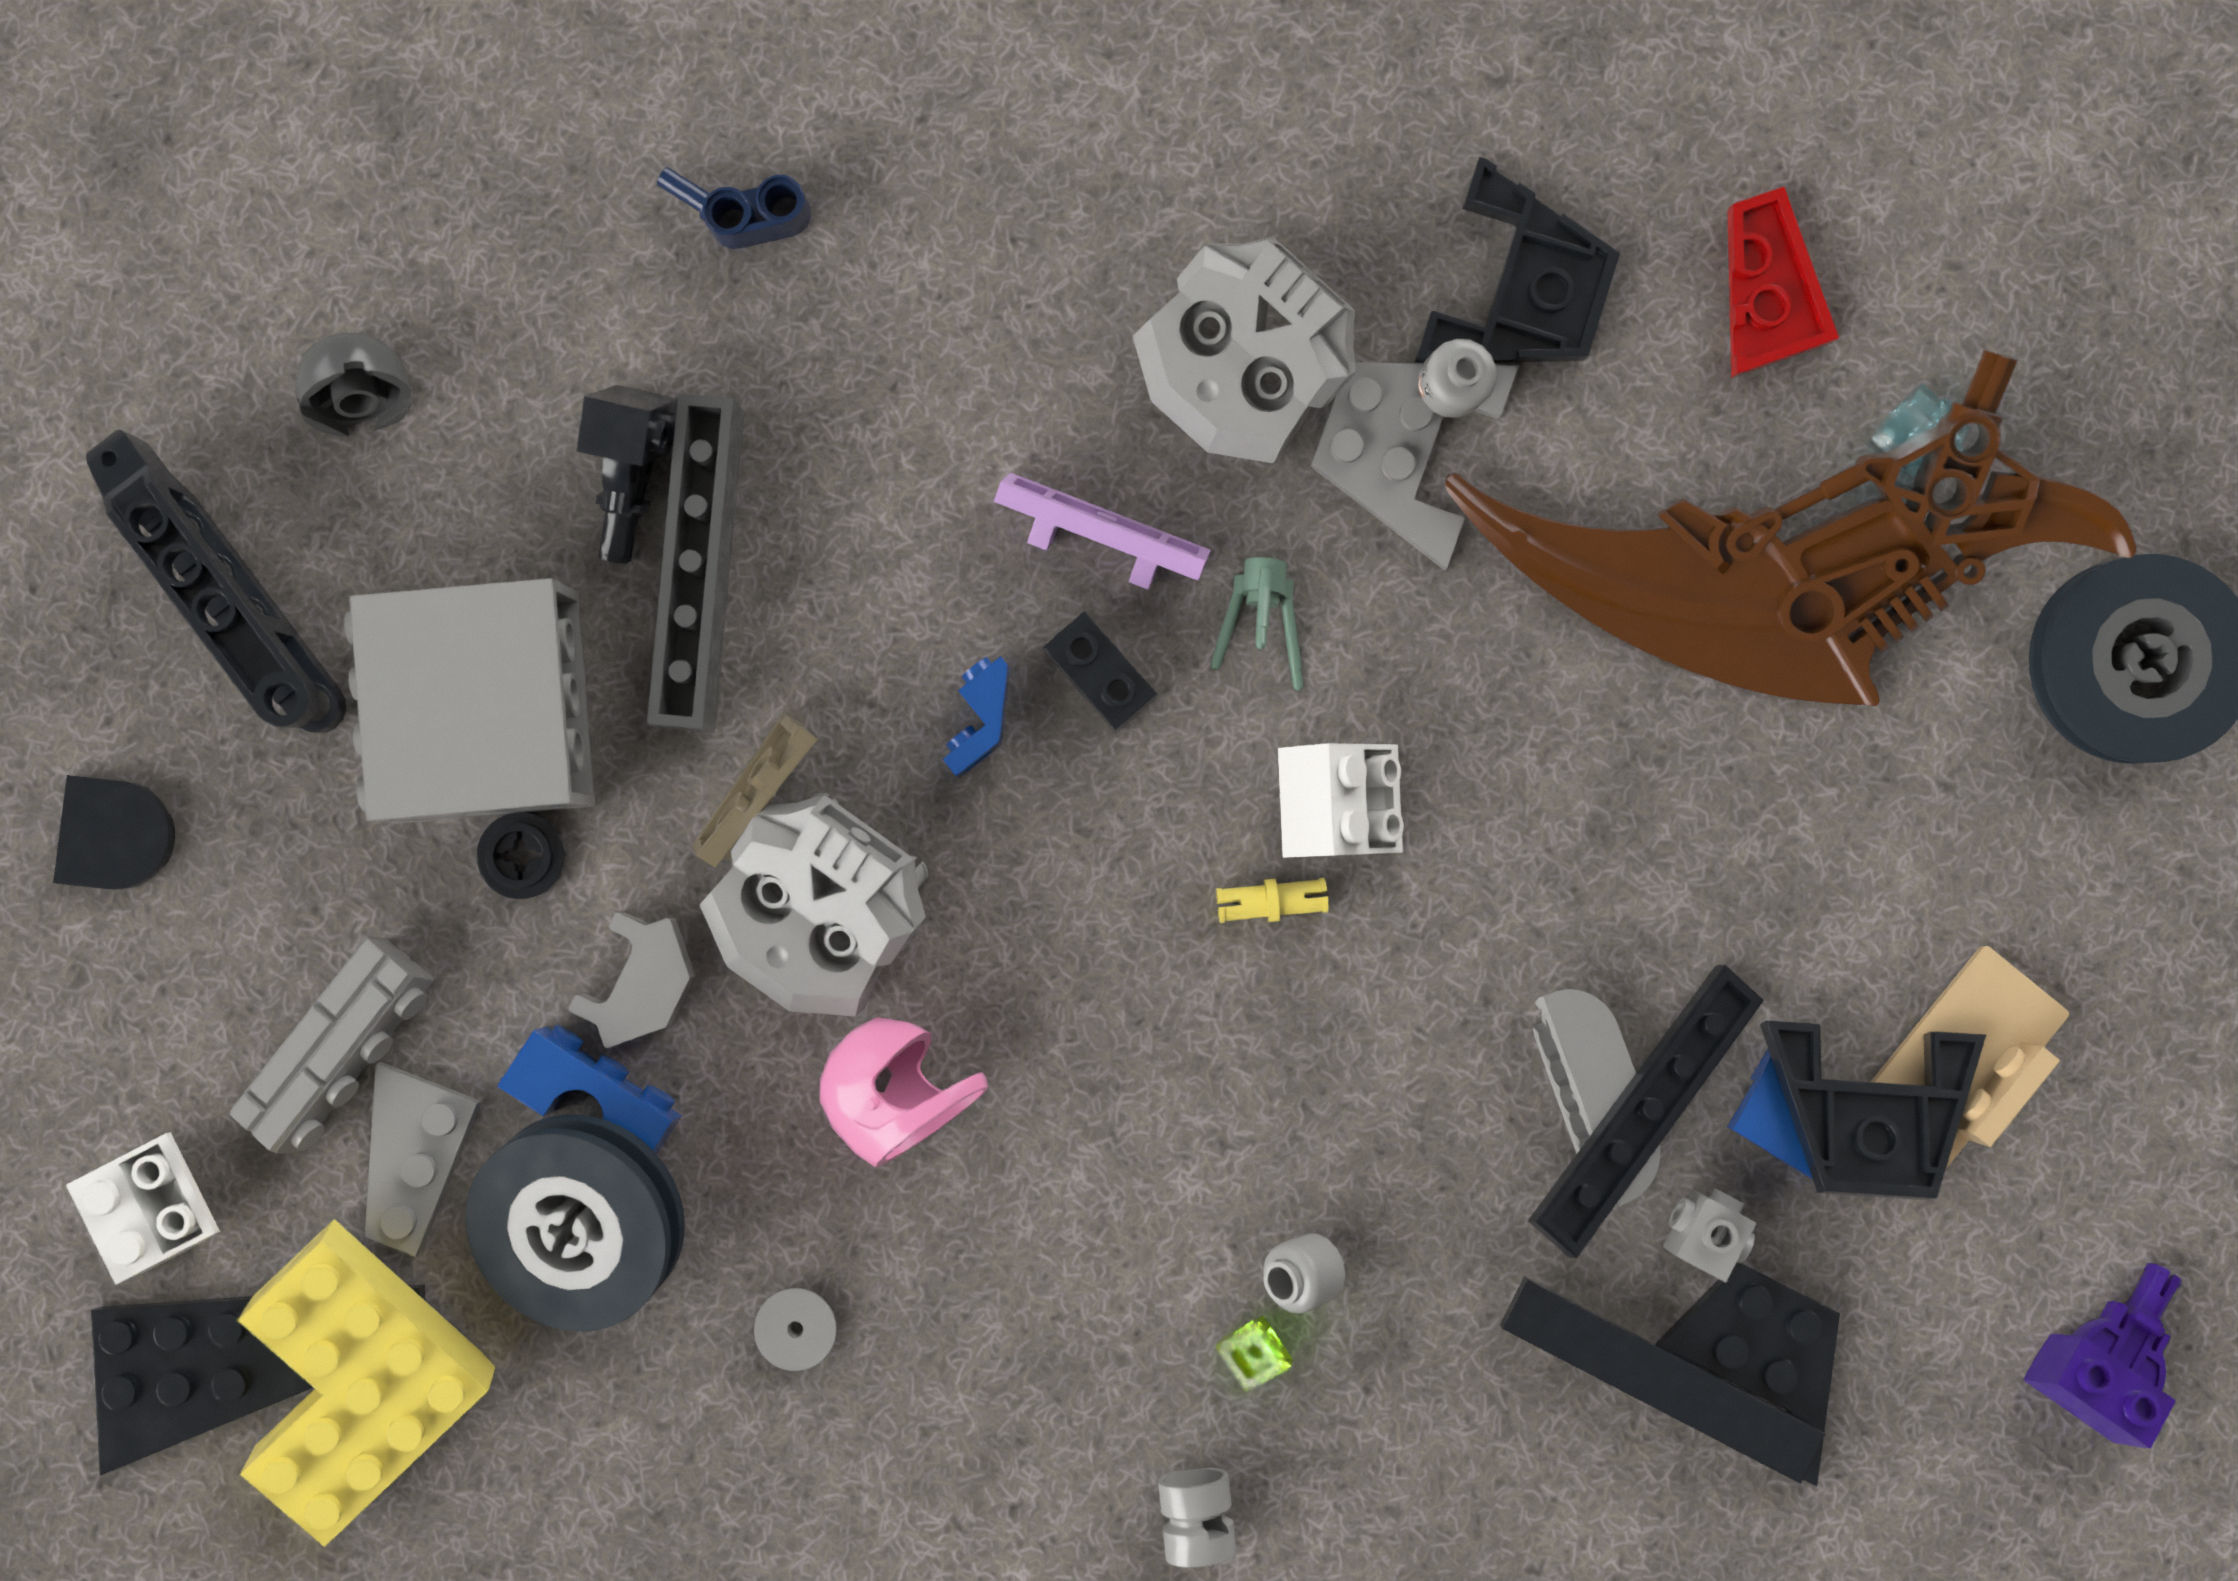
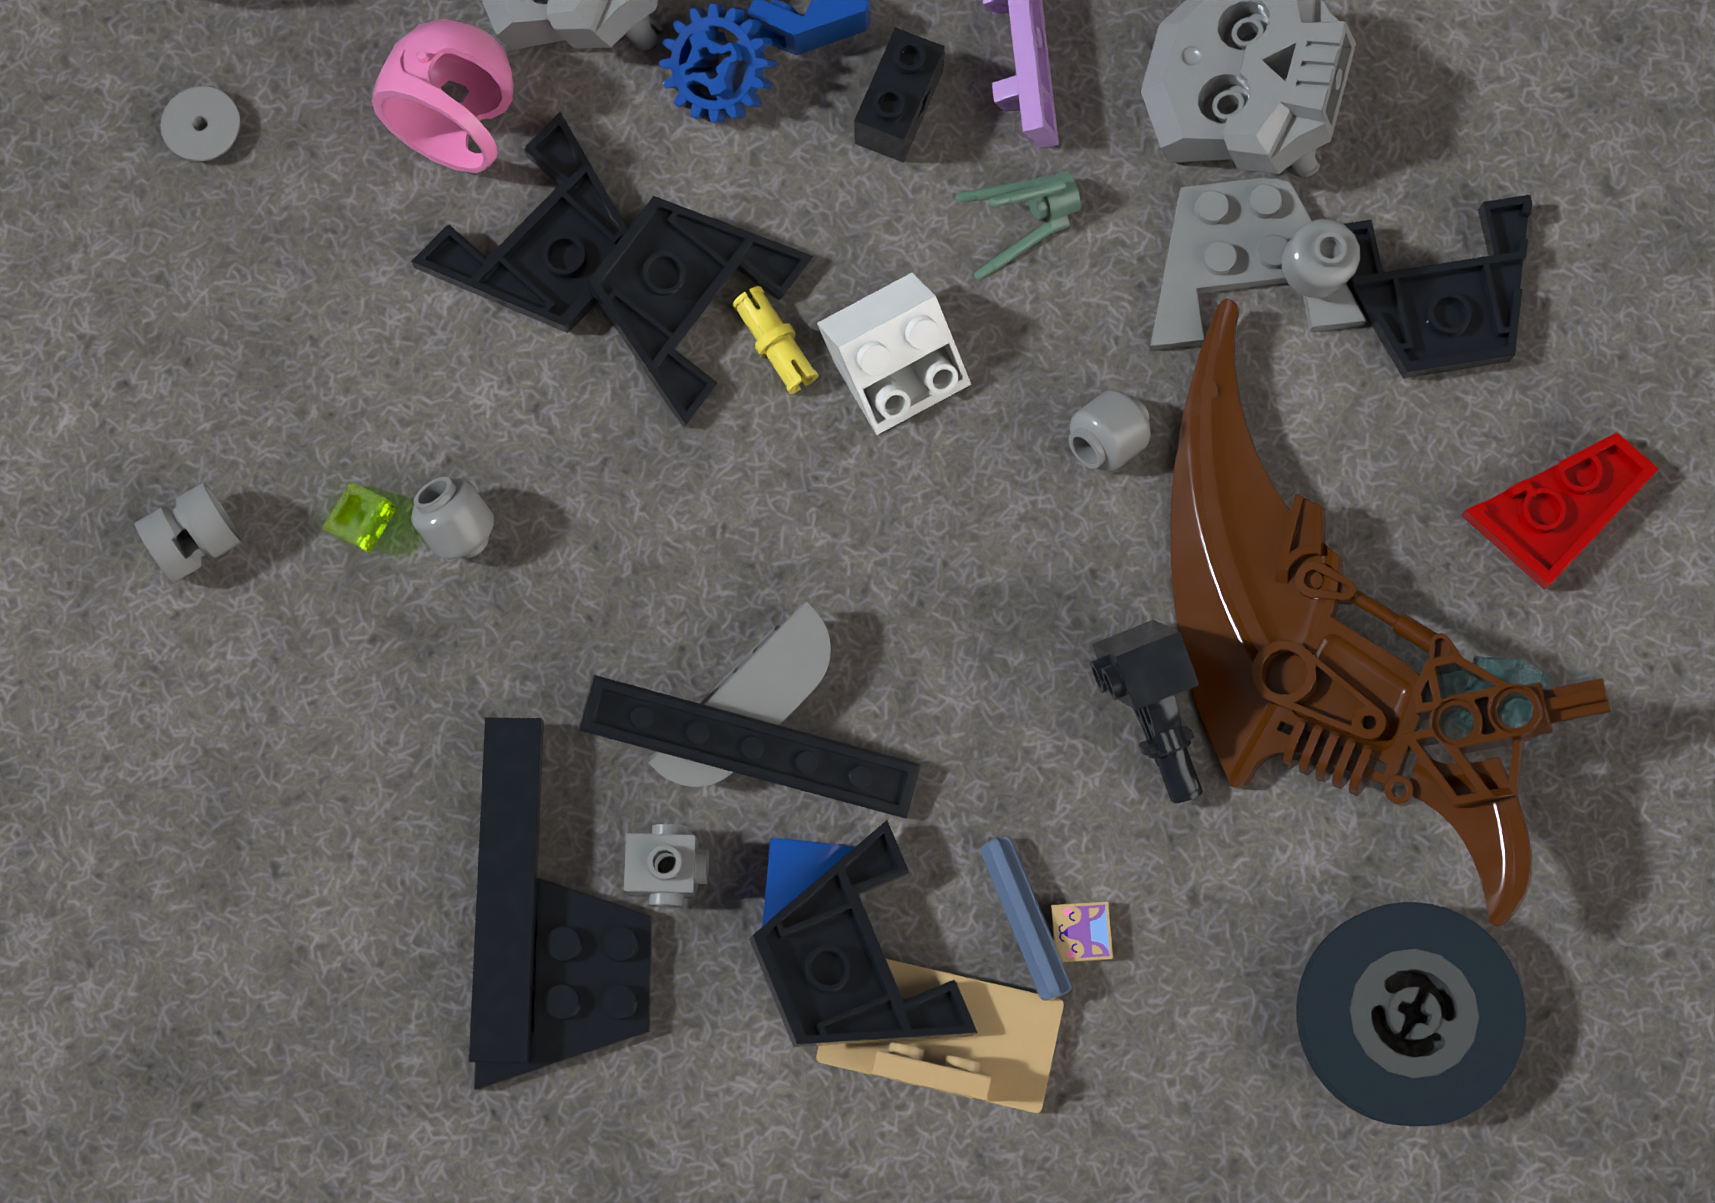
camera: 65 degrees right, 10 degrees down
(970, 809) = (707, 43): none -> blue gear
(1094, 1057) = (552, 252): none -> black wing
(1172, 971) = (667, 276): none -> black wing
(1510, 646) = (1109, 430): none -> light grey head
(1766, 730) = (1145, 672): none -> black brick
(1901, 941) = (1026, 918): none -> sand blue axle
(1932, 899) = (1082, 931): none -> tile

